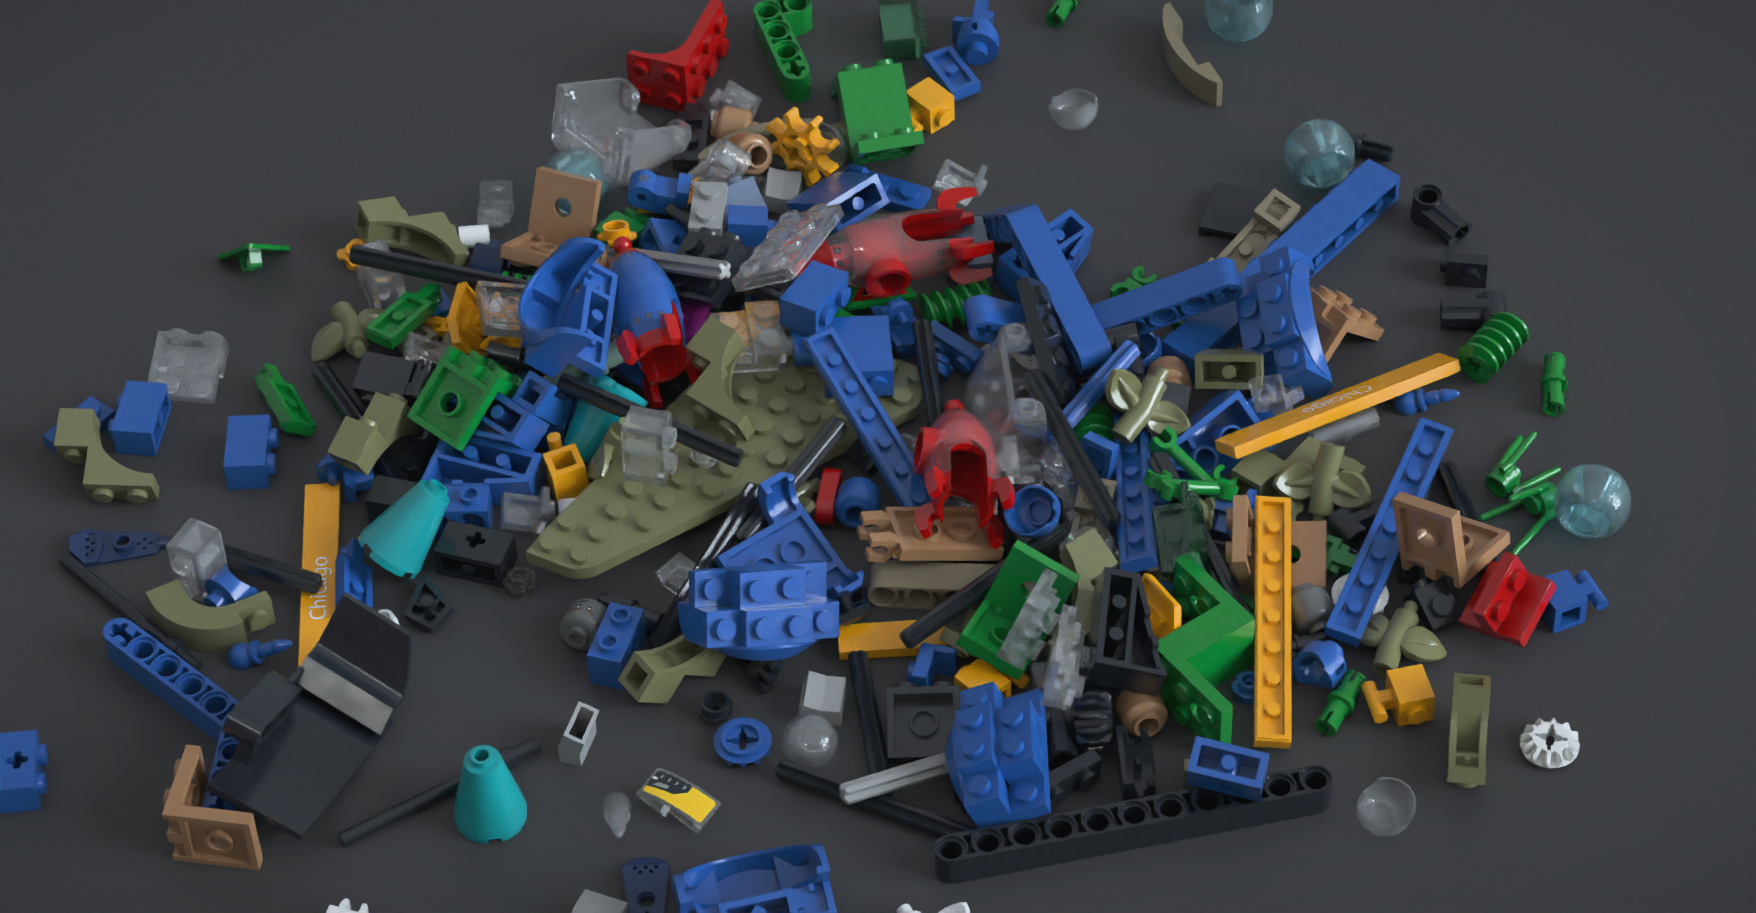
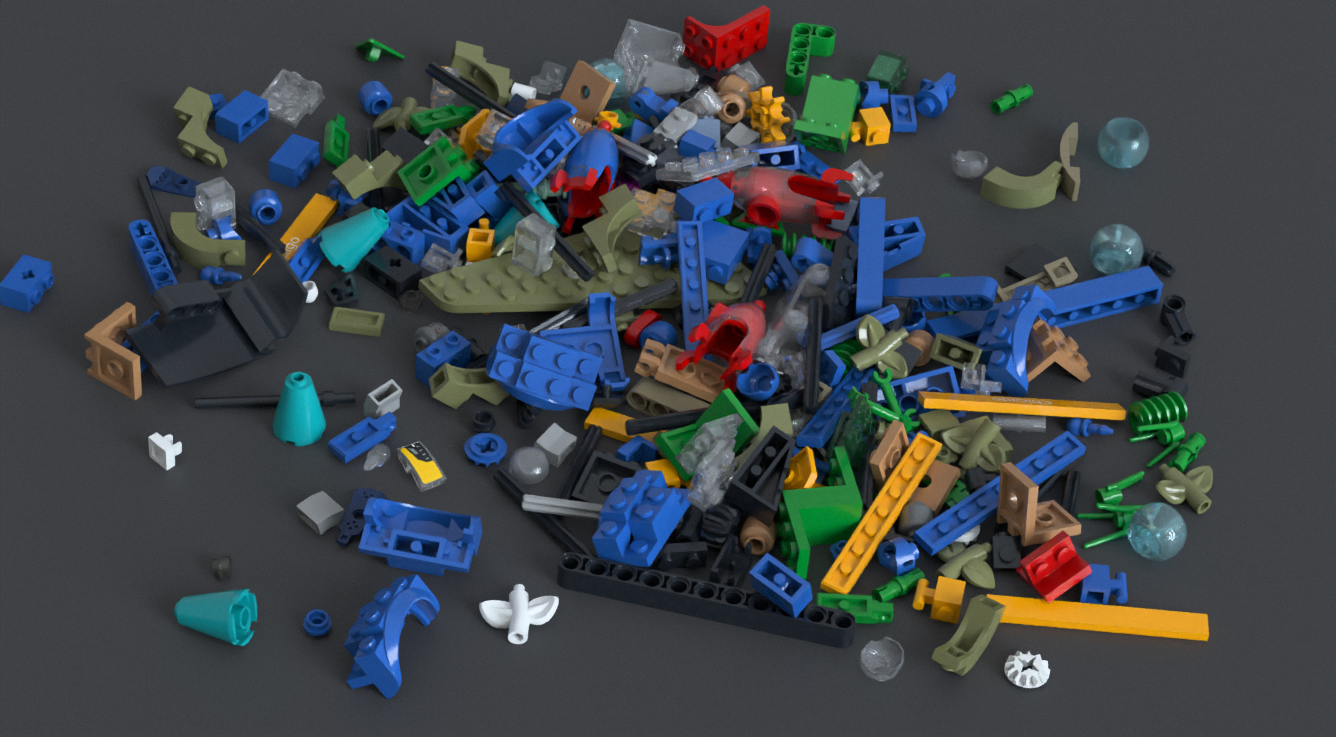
camera: 20 degrees right, 5 degrees down
(255, 531) = (265, 206): none -> blue head
(295, 321) = (374, 98): none -> blue head
(470, 639) = (356, 321): none -> olive tile
(582, 794) = (362, 437): none -> blue hinge
(798, 385) = (658, 251): none -> blue hips
(912, 62) = (872, 94): none -> blue piece
(1076, 521) = (793, 398): none -> black bar
(1155, 121) = (1020, 191): none -> olive arch
(1315, 749) = (861, 606): none -> green hinge
(1519, 369) = (1167, 434): none -> green plant
(1581, 426) = (1190, 487): none -> olive plant
(1593, 636) = (1104, 618): none -> light orange tile

